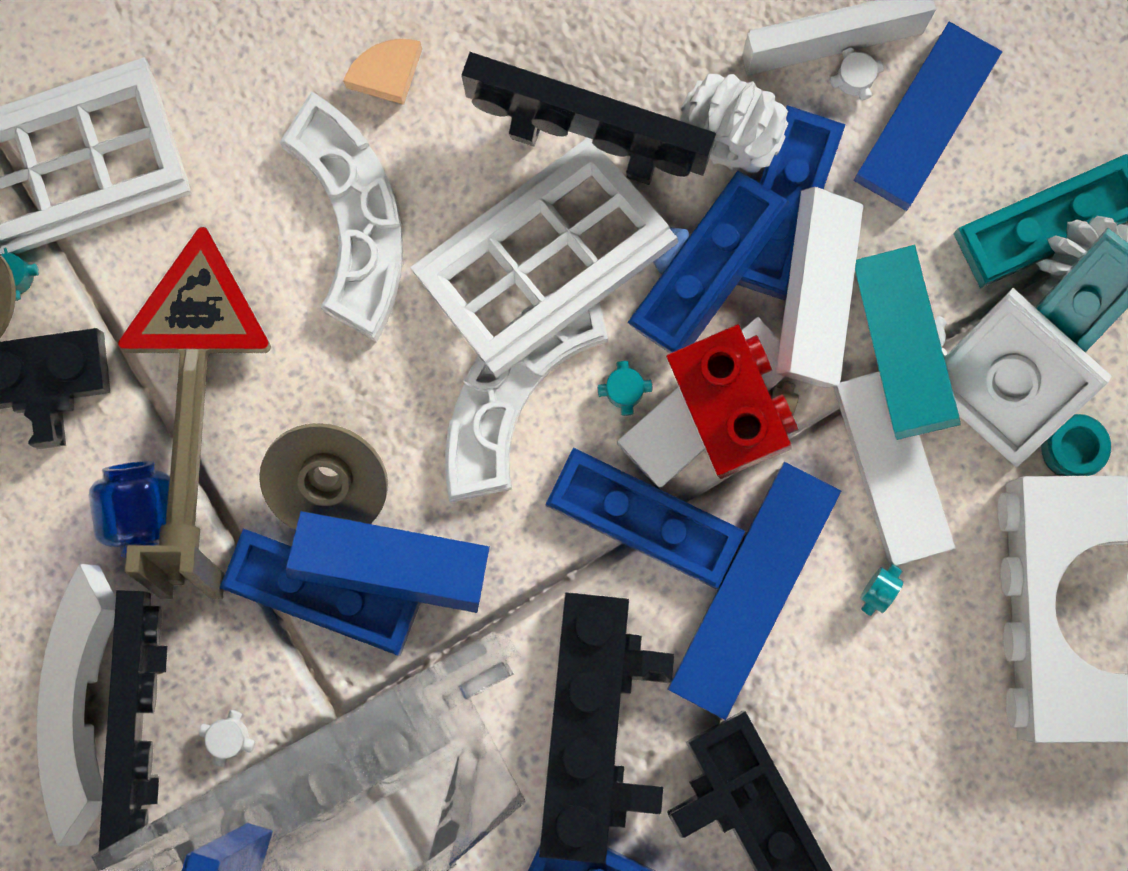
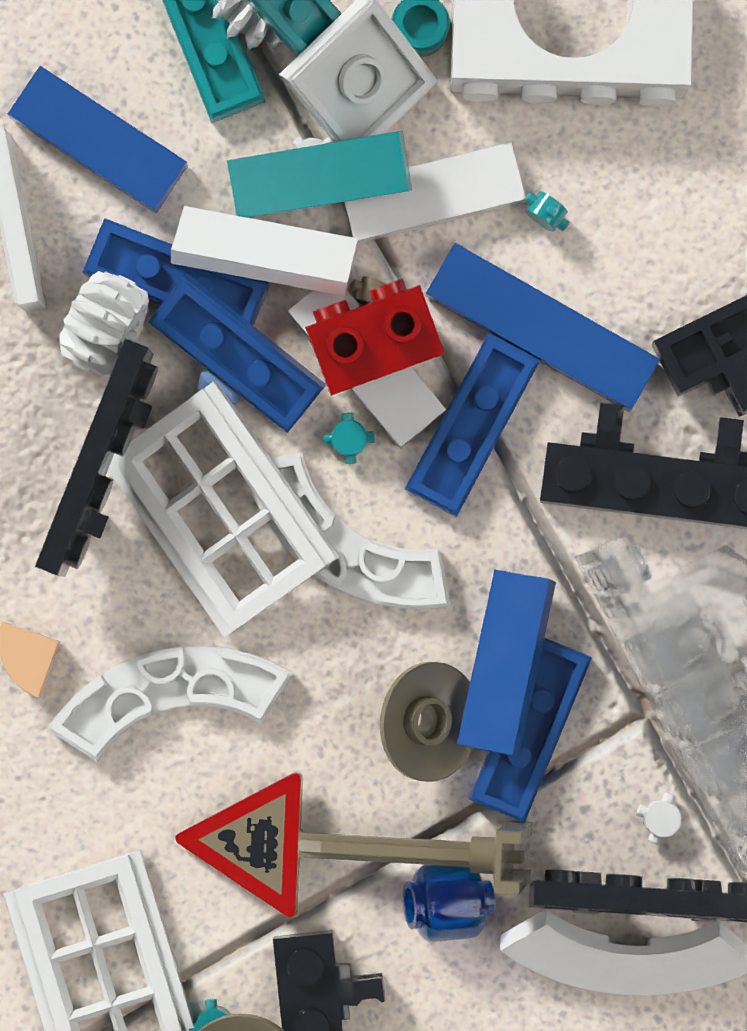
camera: 95 degrees left, 5 degrees up
(856, 74) = (52, 204): white piece -> none

